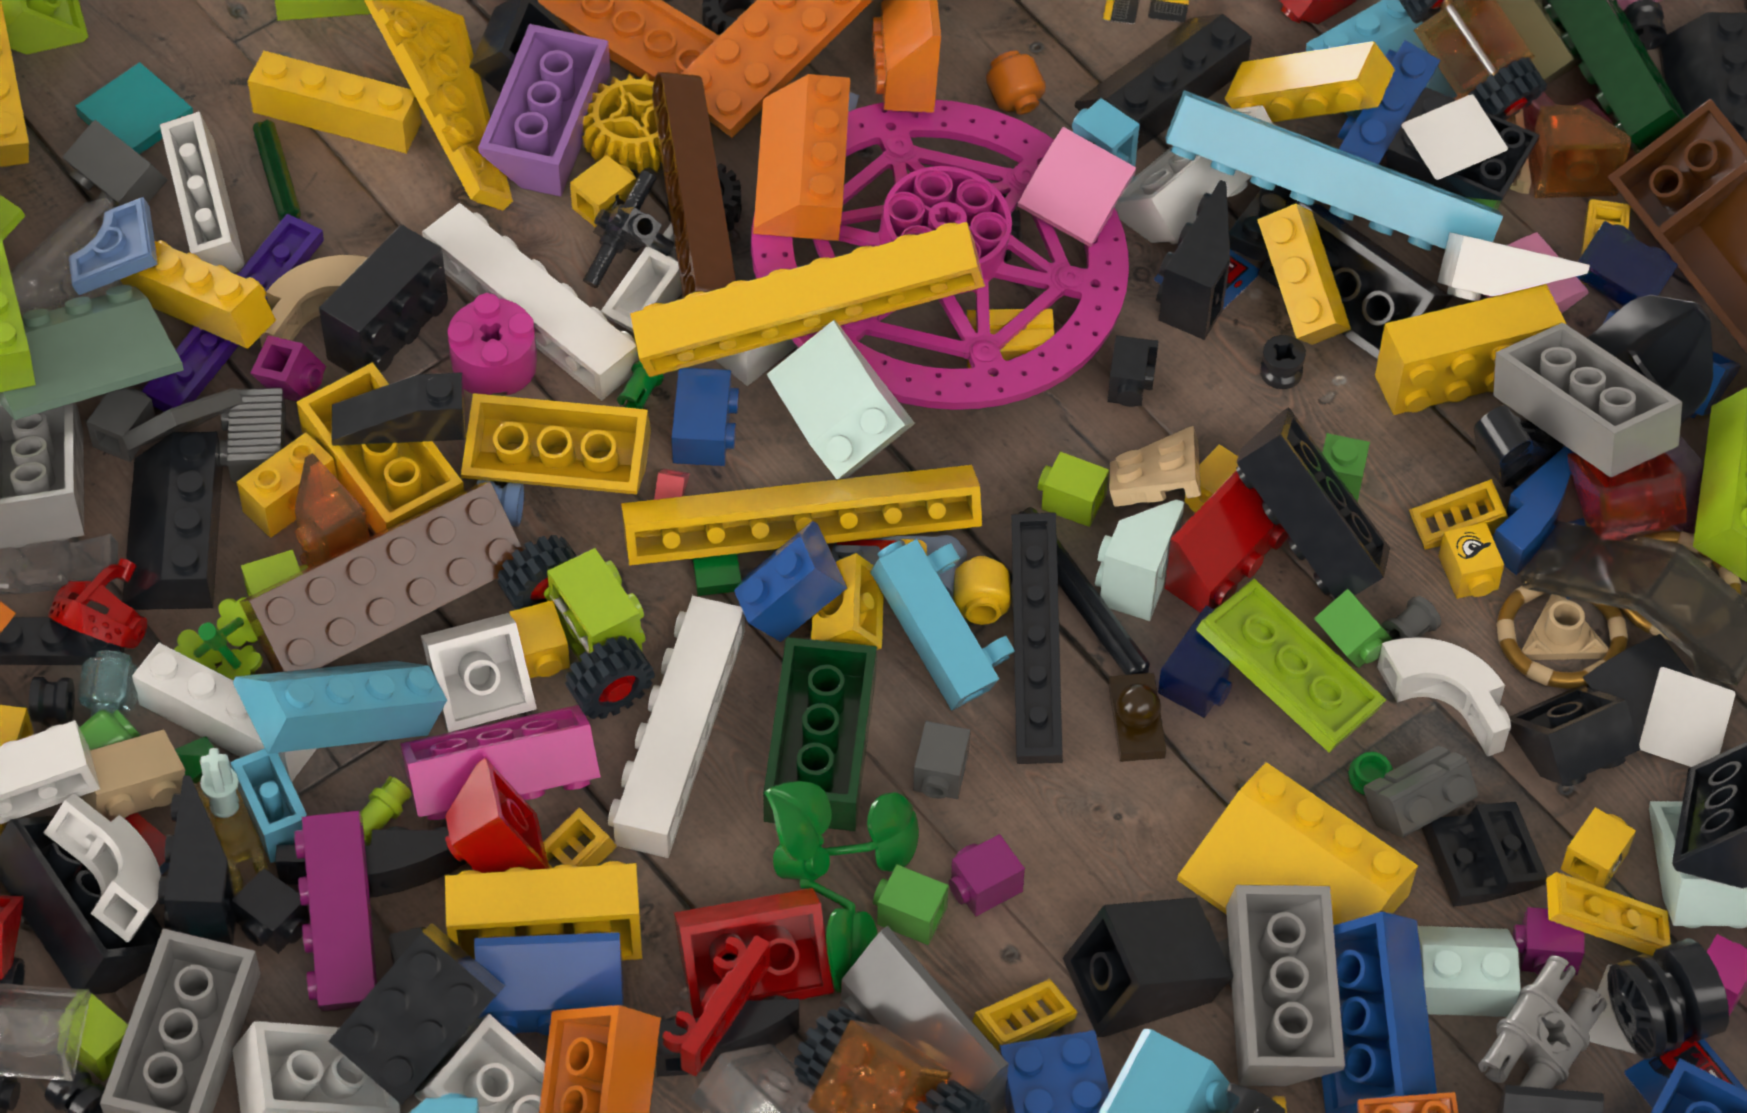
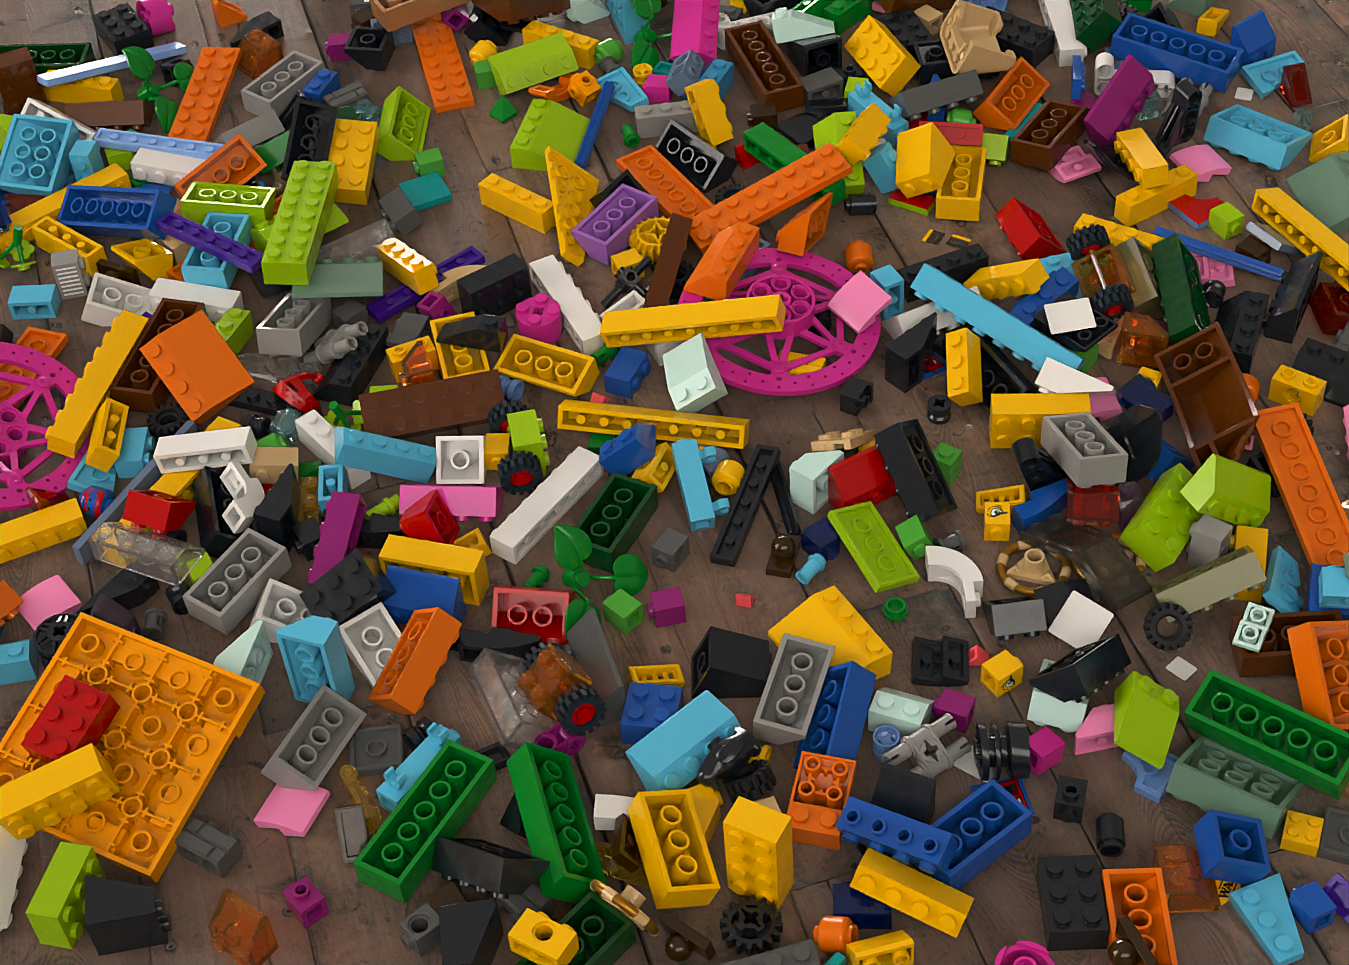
camera: 25 degrees right, 10 degrees down
(117, 48) = (428, 162): none -> bright green brick
(118, 250) = (379, 240): medium blue tile -> none
(135, 490) = (336, 343): none -> light grey pin
(182, 418) = (376, 315): dark grey tile -> none
(202, 192) = (435, 227): white brick -> none
(219, 784) = (307, 472): light aqua axle -> none
(276, 169) = (478, 227): dark green axle -> none
(720, 1003) = (497, 626): red plate -> none
(726, 883) = (539, 575): none -> green pin
(1073, 488) = (797, 441): lime brick -> none
(1107, 821) = (744, 600): none -> coral piece
(1201, 722) = (811, 568): none -> medium azure pin
(1420, 791) = (915, 621): dark grey brick -> none
(1472, 1026) = (884, 739): none -> medium blue wheel
(1542, 825) = (977, 656): none -> coral piece
(1607, 914) = (986, 700): yellow tile -> none

